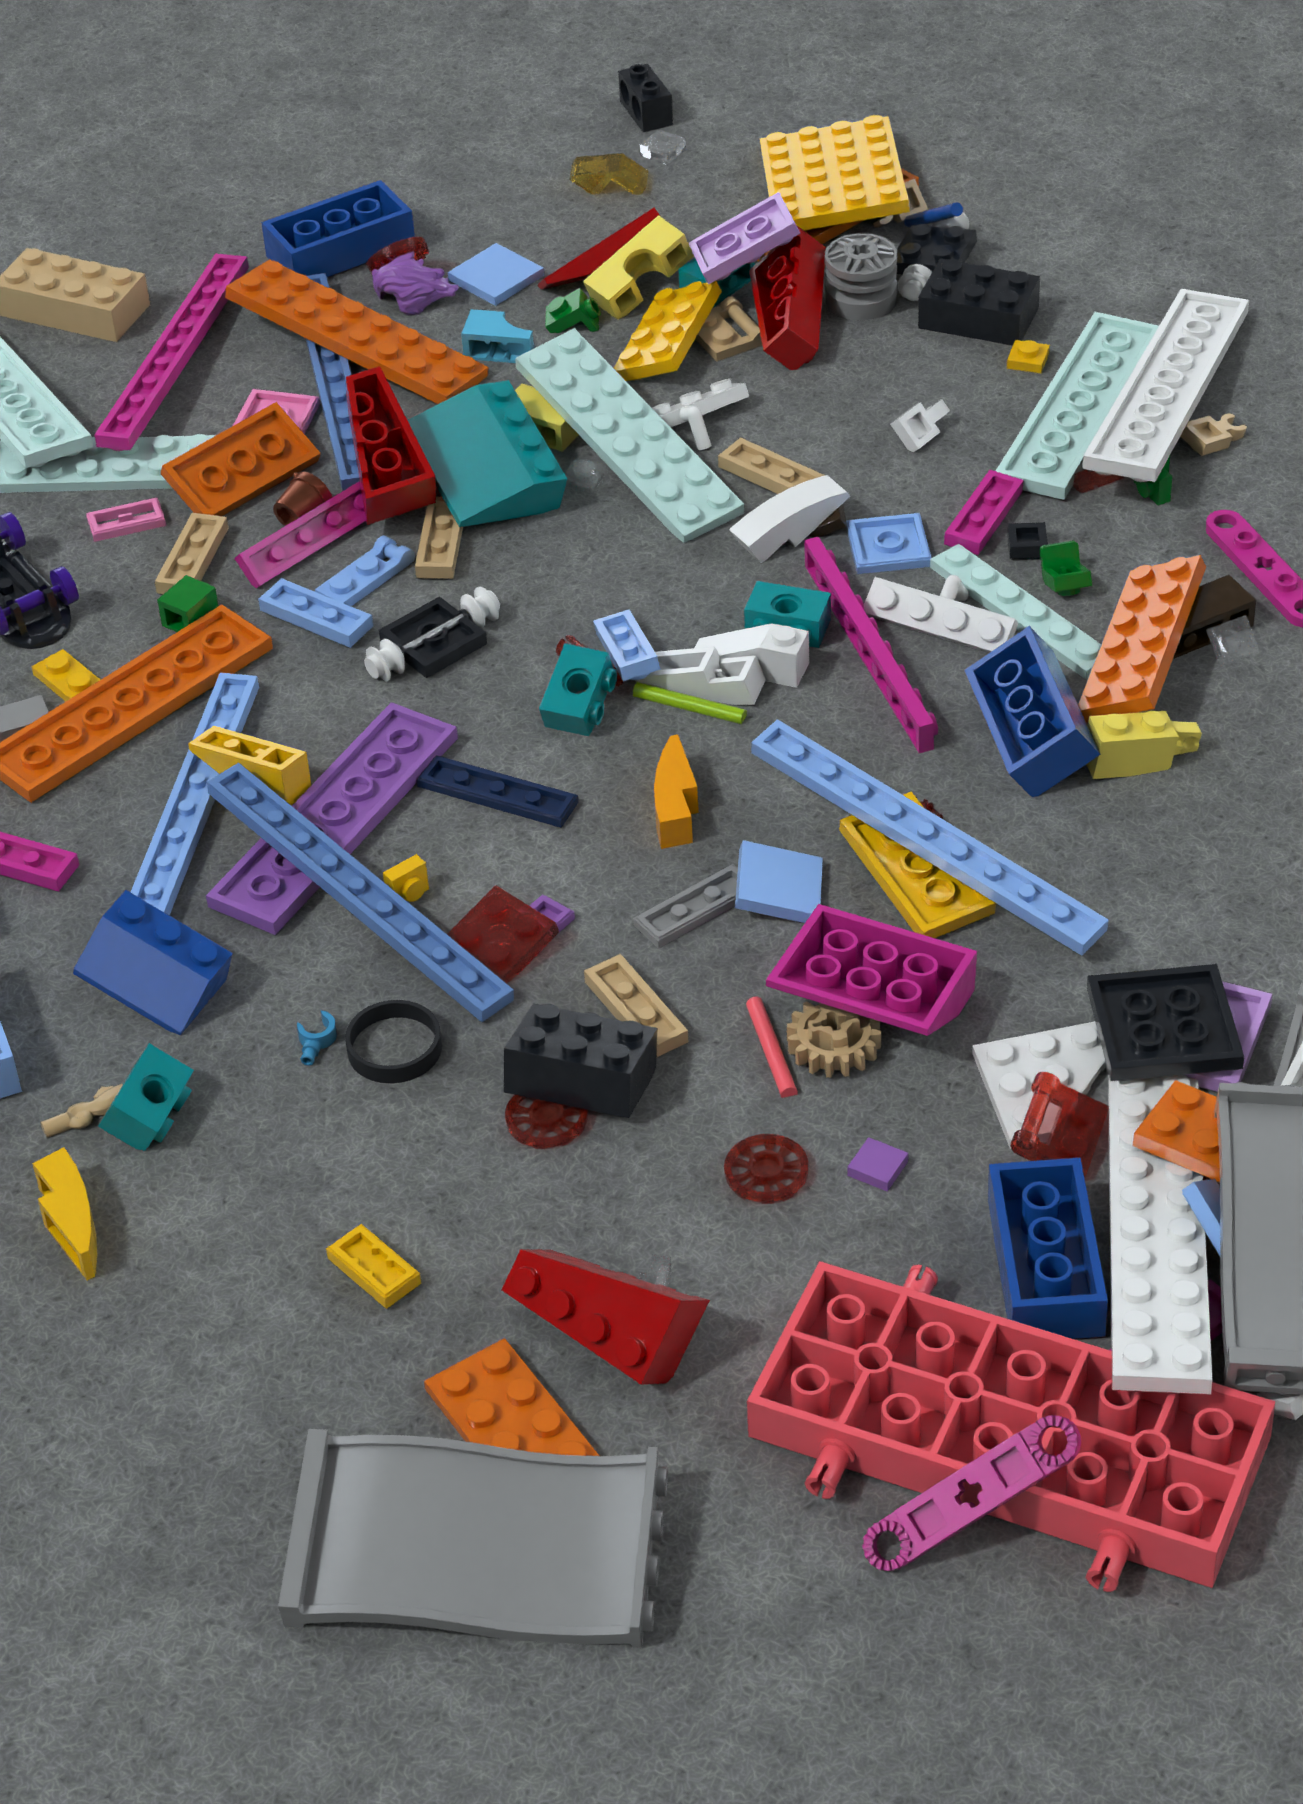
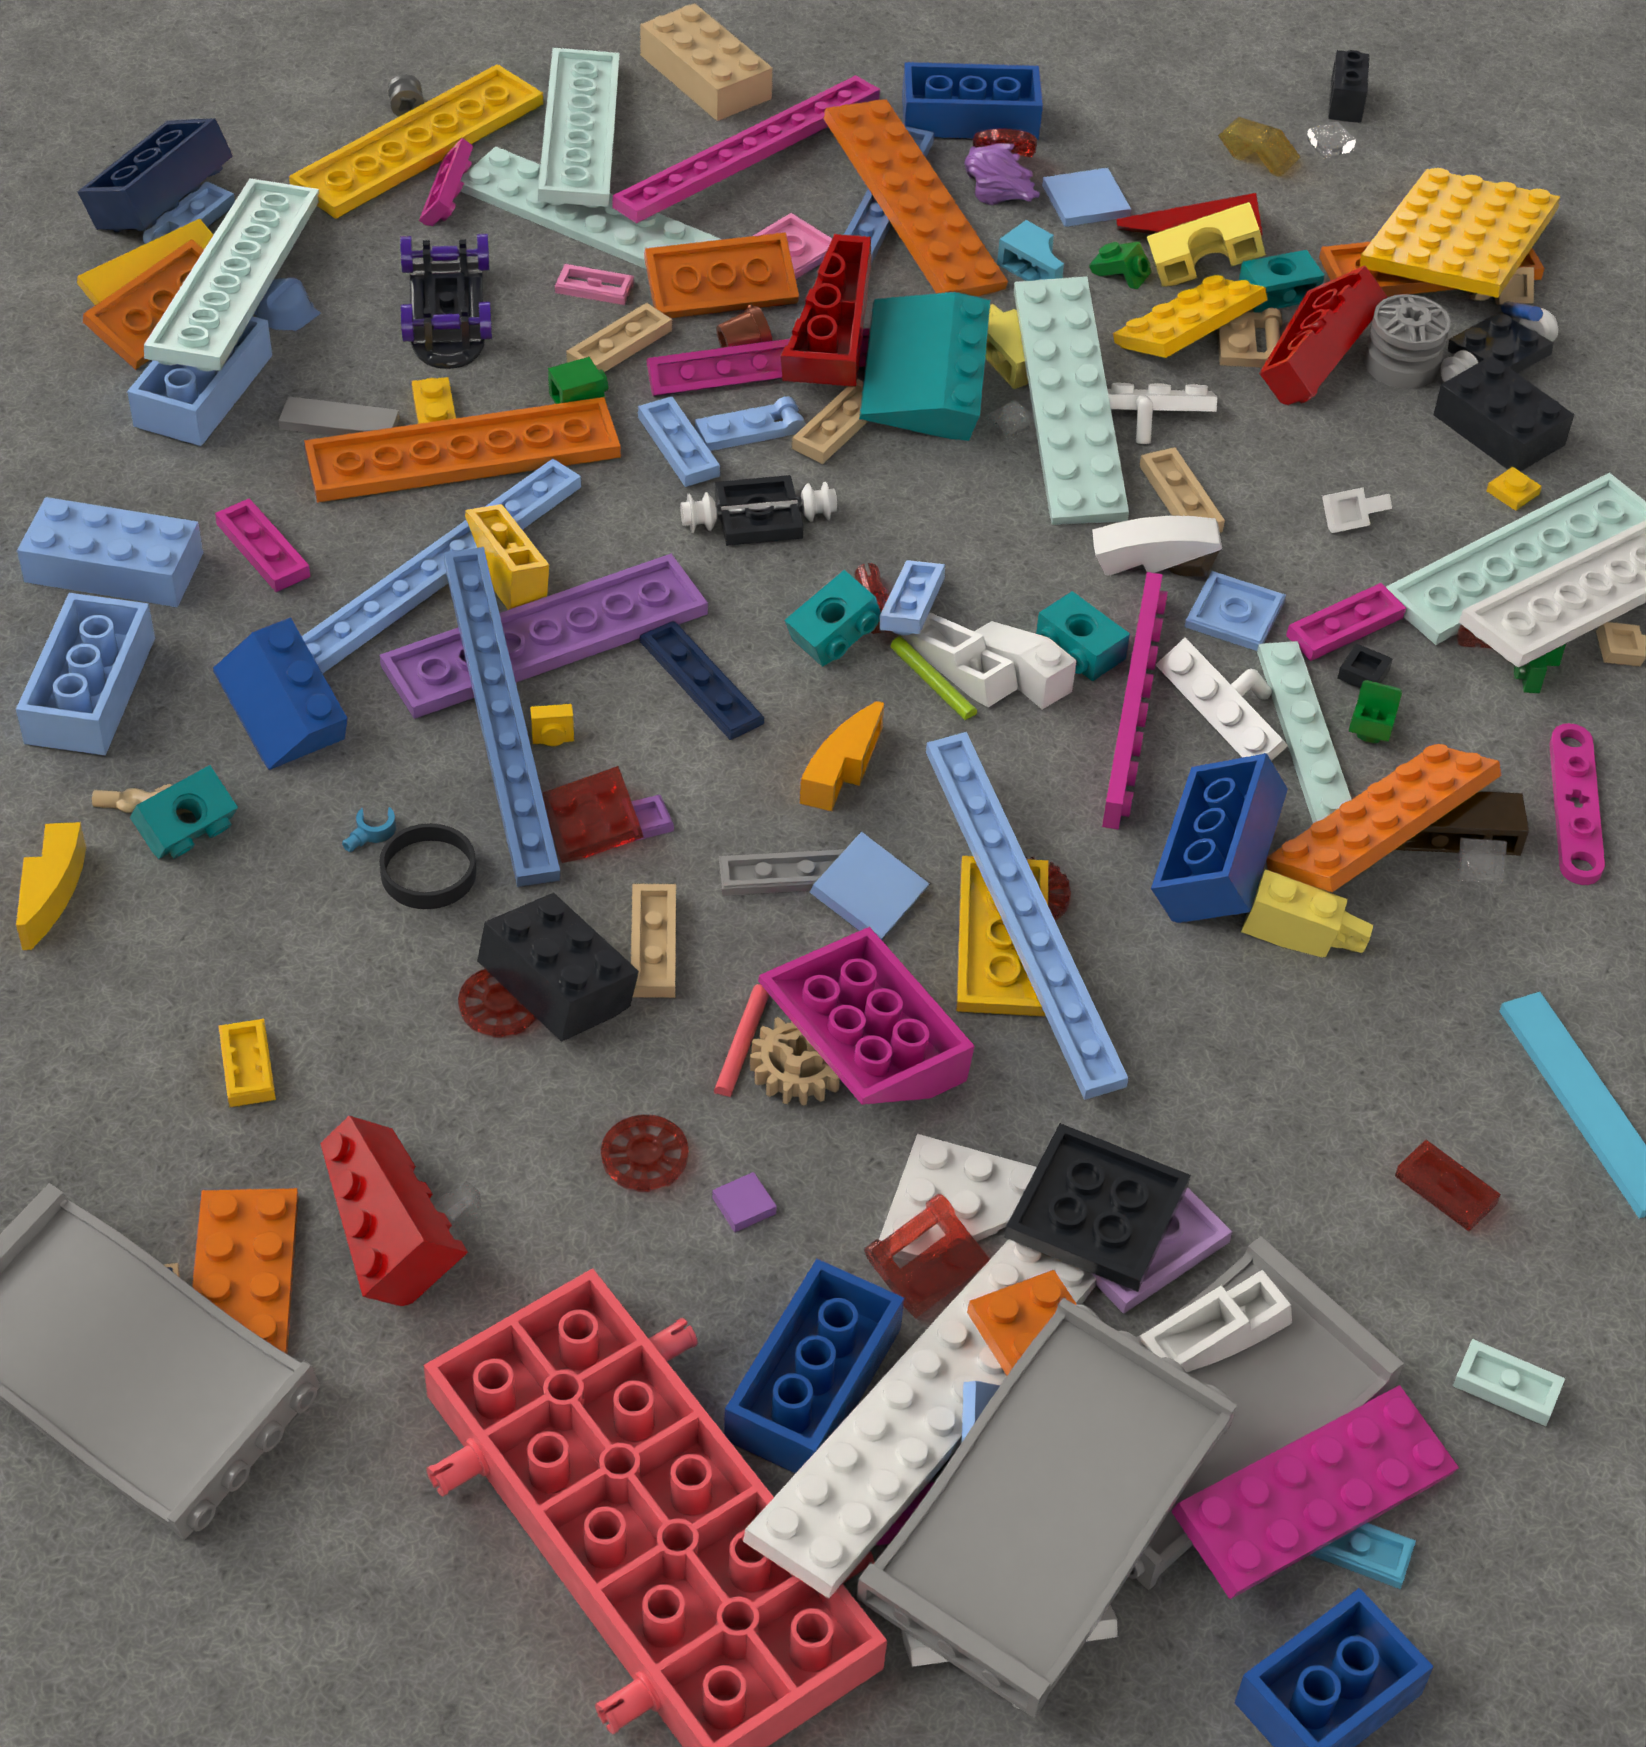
camera: 25 degrees right, 5 degrees up
(744, 238) = (1311, 257): lavender plate -> none
(1000, 1472) = (574, 1567): dark pink piece -> none

